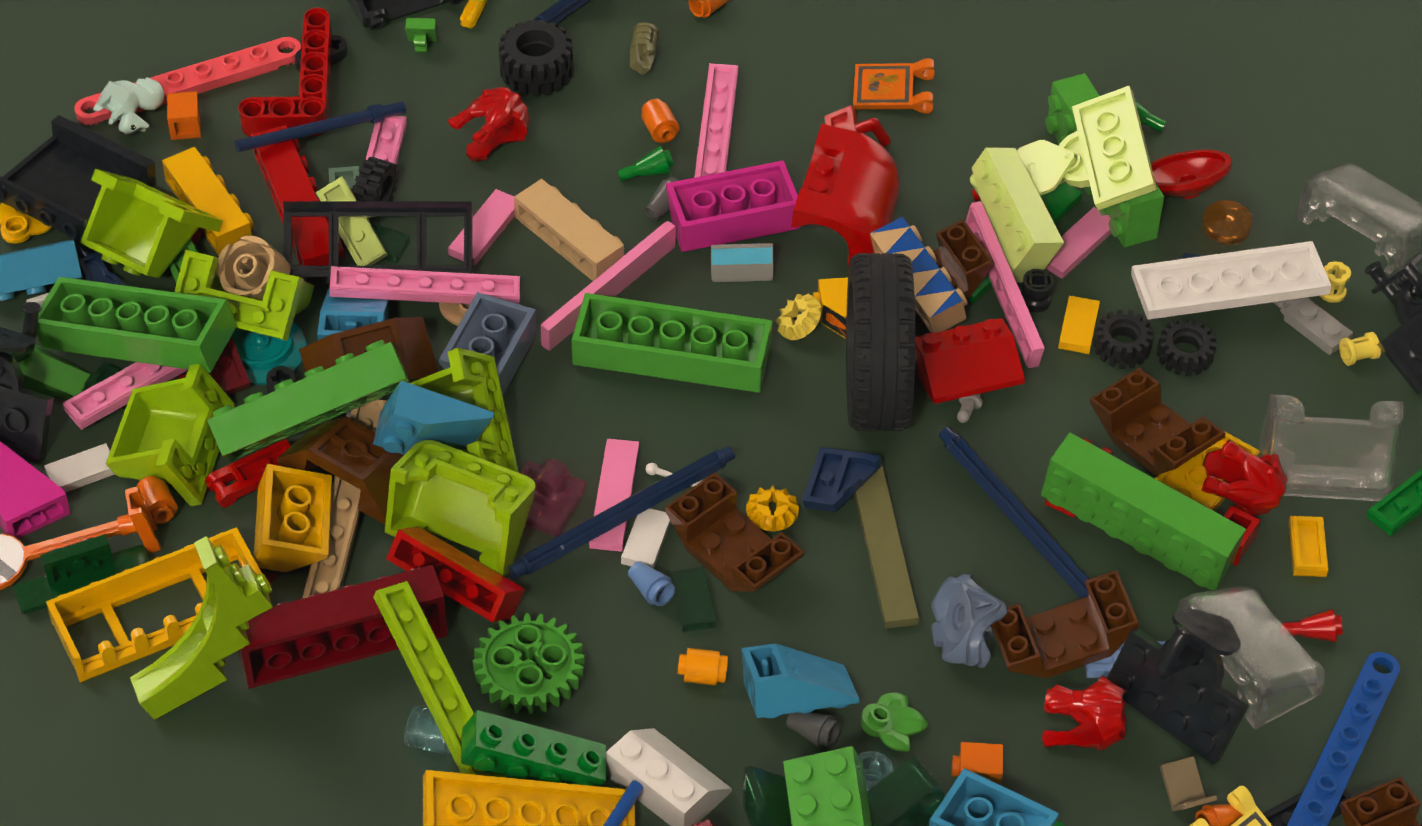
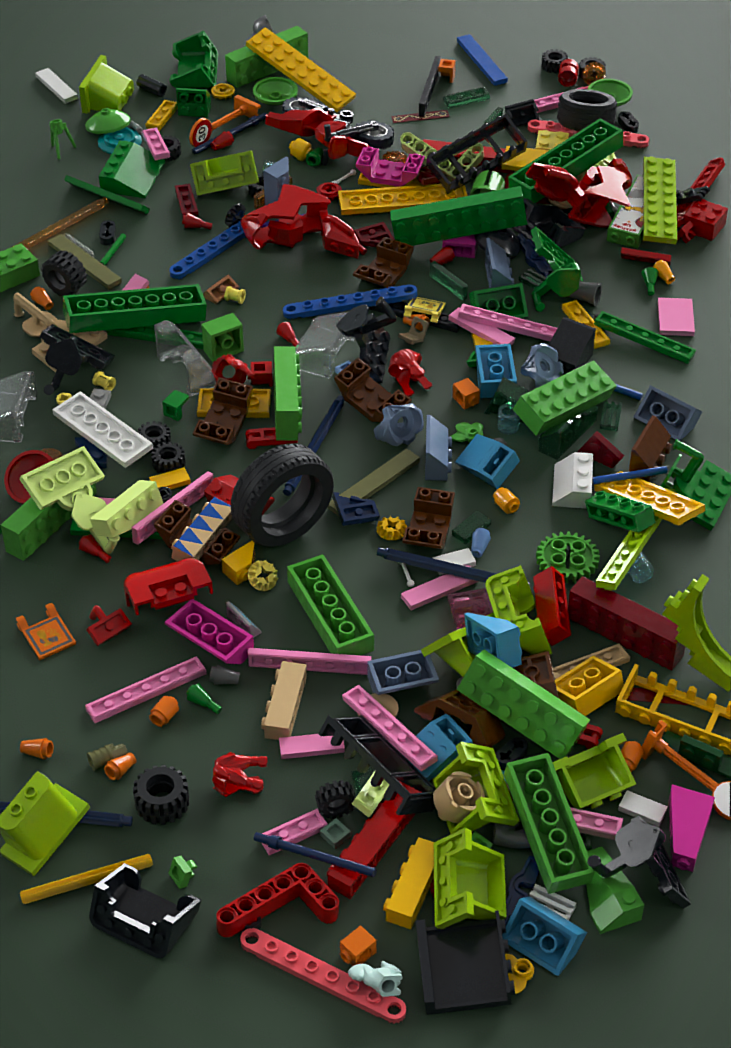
camera: 125 degrees left, 5 degrees down
(615, 48) = (119, 766): none -> orange cone
(873, 633) = (437, 450): none -> sand blue slope
(1236, 394) = (173, 404): none -> green panel
(1308, 546) = (245, 354): yellow tile -> none
(1352, 517) = (222, 336): none -> bright green brick

